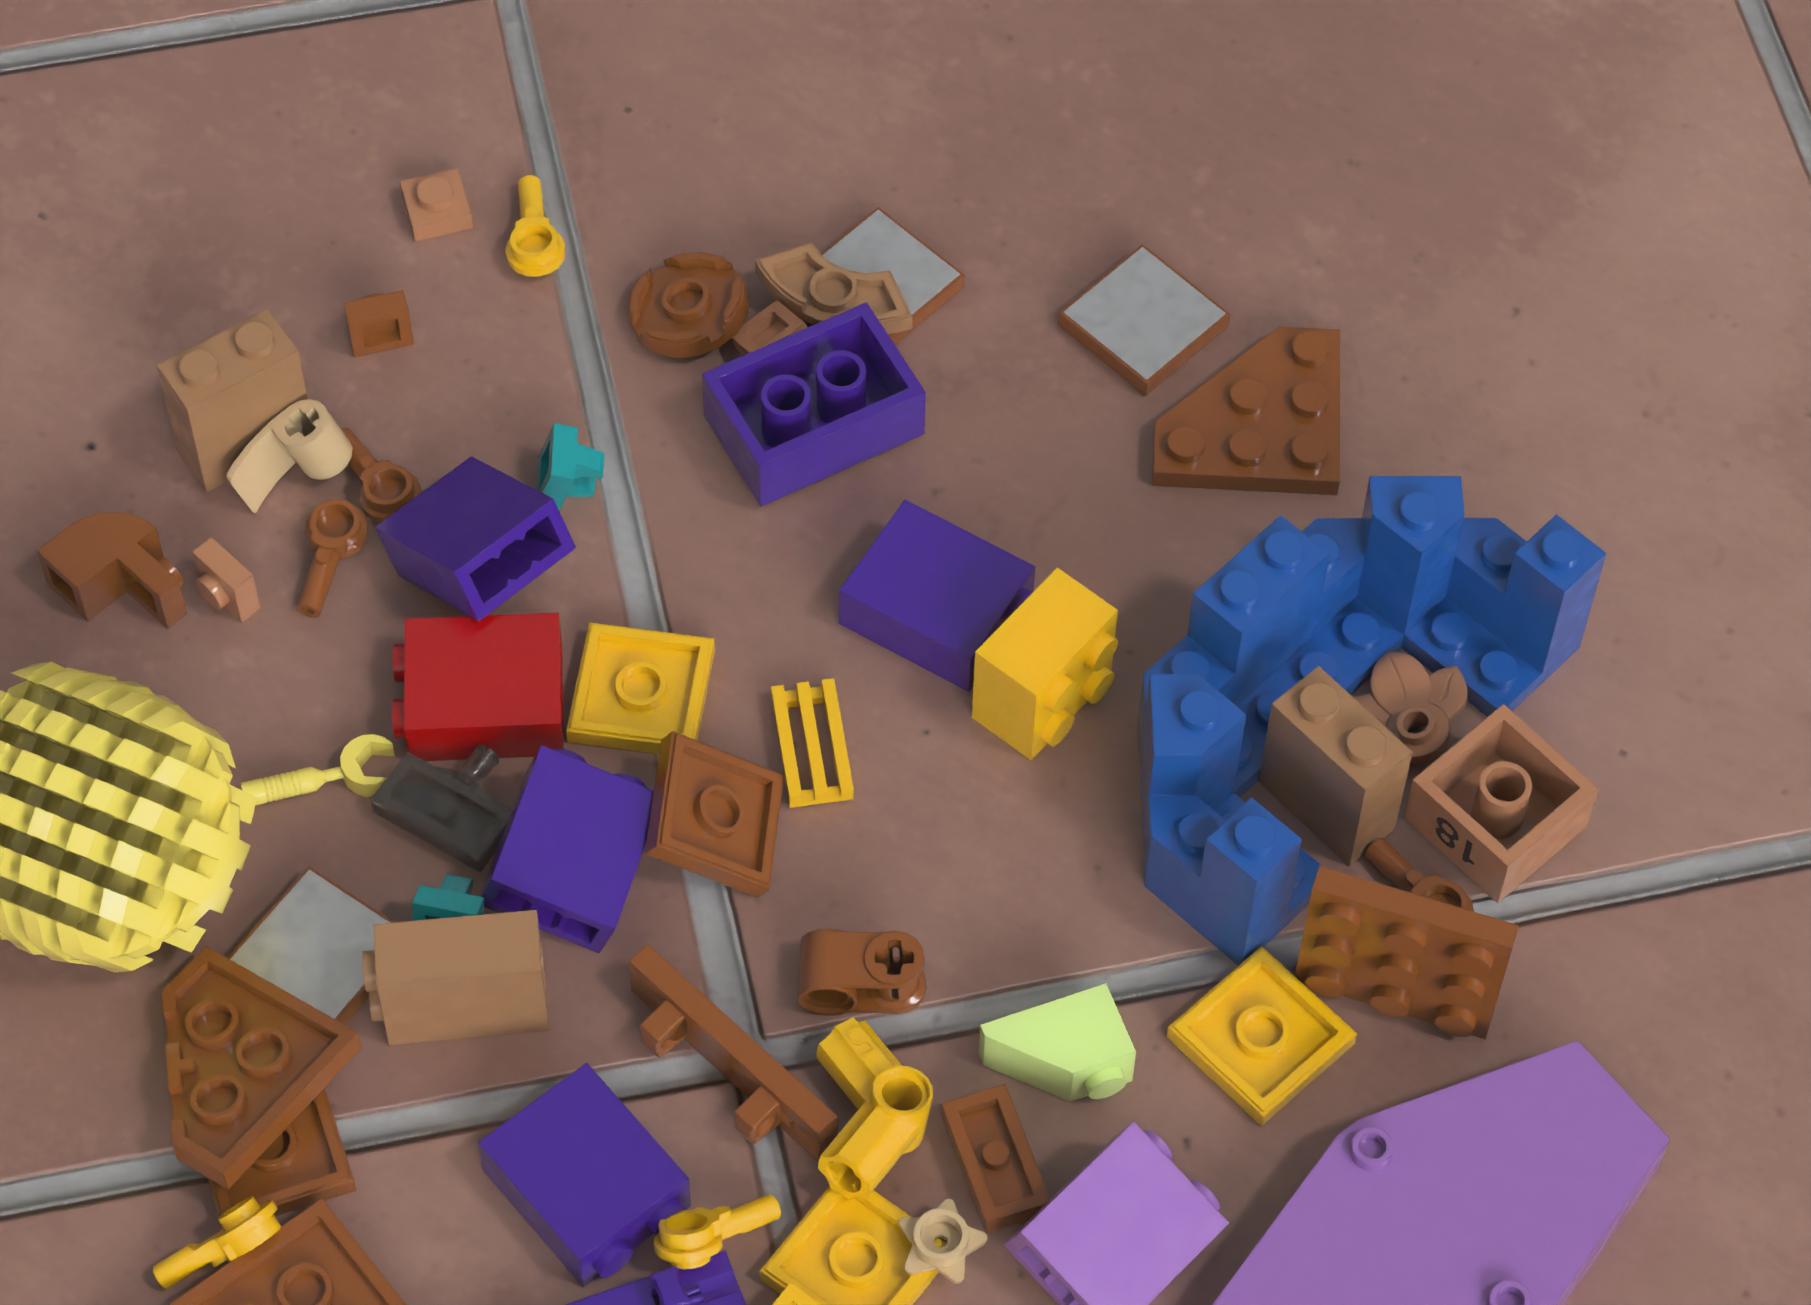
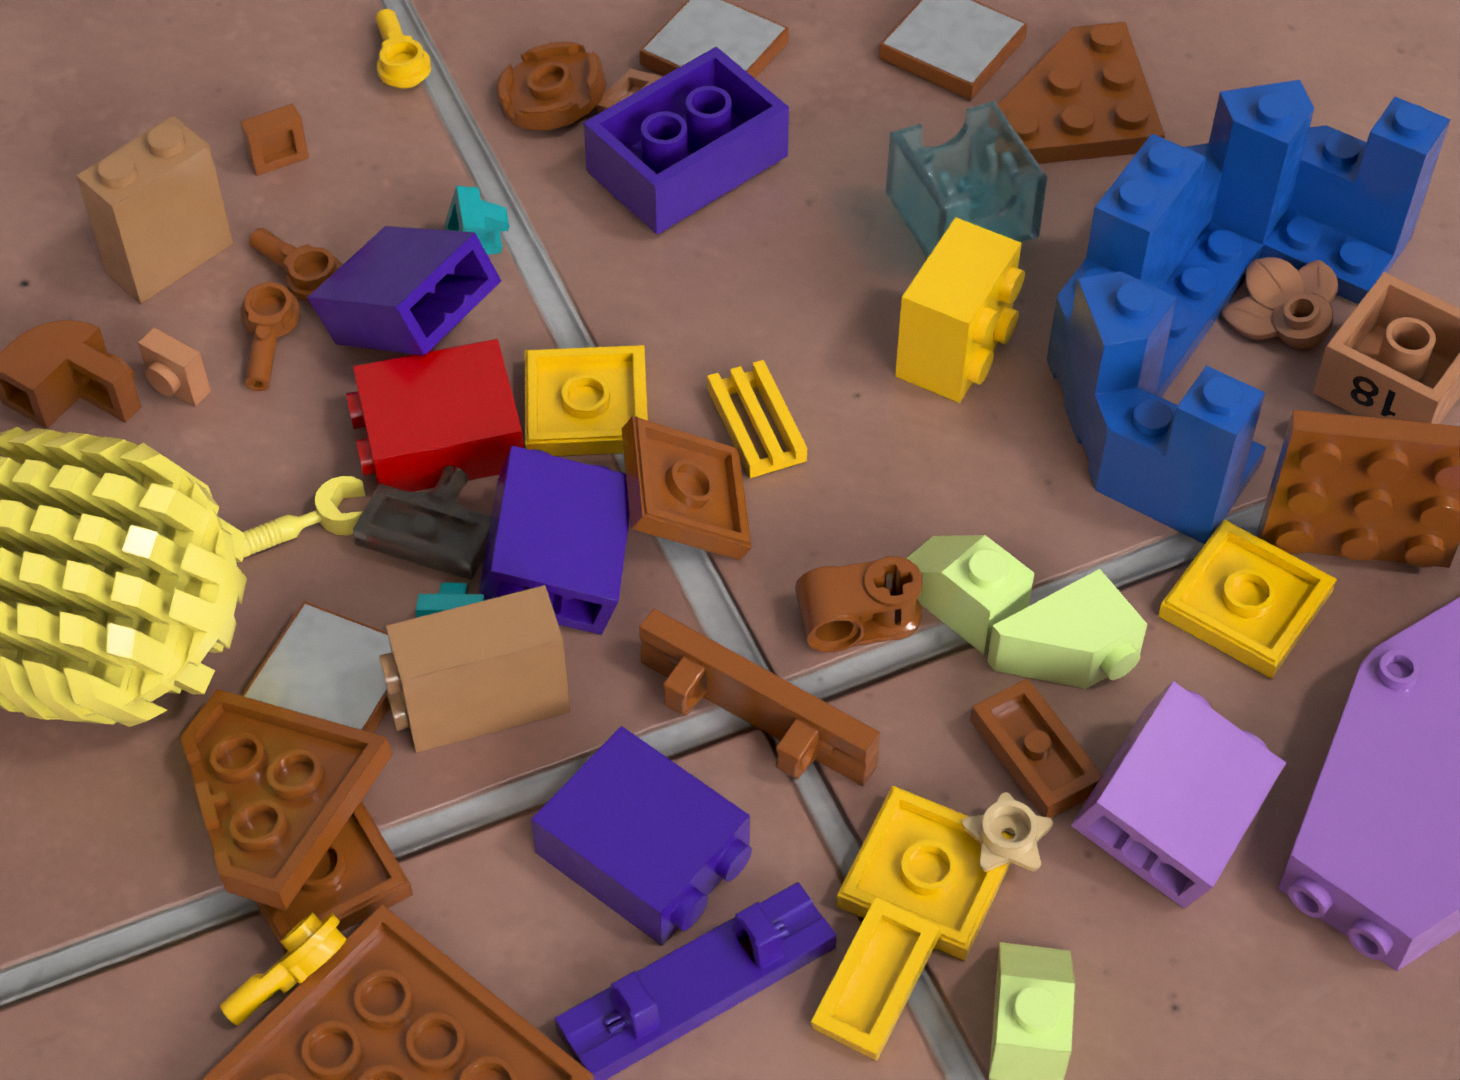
camera: 10 degrees left, 5 degrees down
(299, 435) = (218, 236): tan panel -> none
(436, 204) = (306, 45): nougat plate -> none
(697, 1234) = (771, 868): yellow plate -> none
(820, 289) = (661, 50): medium nougat tile -> none
(890, 1104) = (925, 720): yellow piece -> none
(933, 592) = (837, 276): dark purple brick -> none
(975, 970) = (971, 584): none -> yellowish green slope
(1098, 515) = (975, 176): none -> clear light blue piece
(1334, 765) = (1254, 334): medium nougat brick -> none

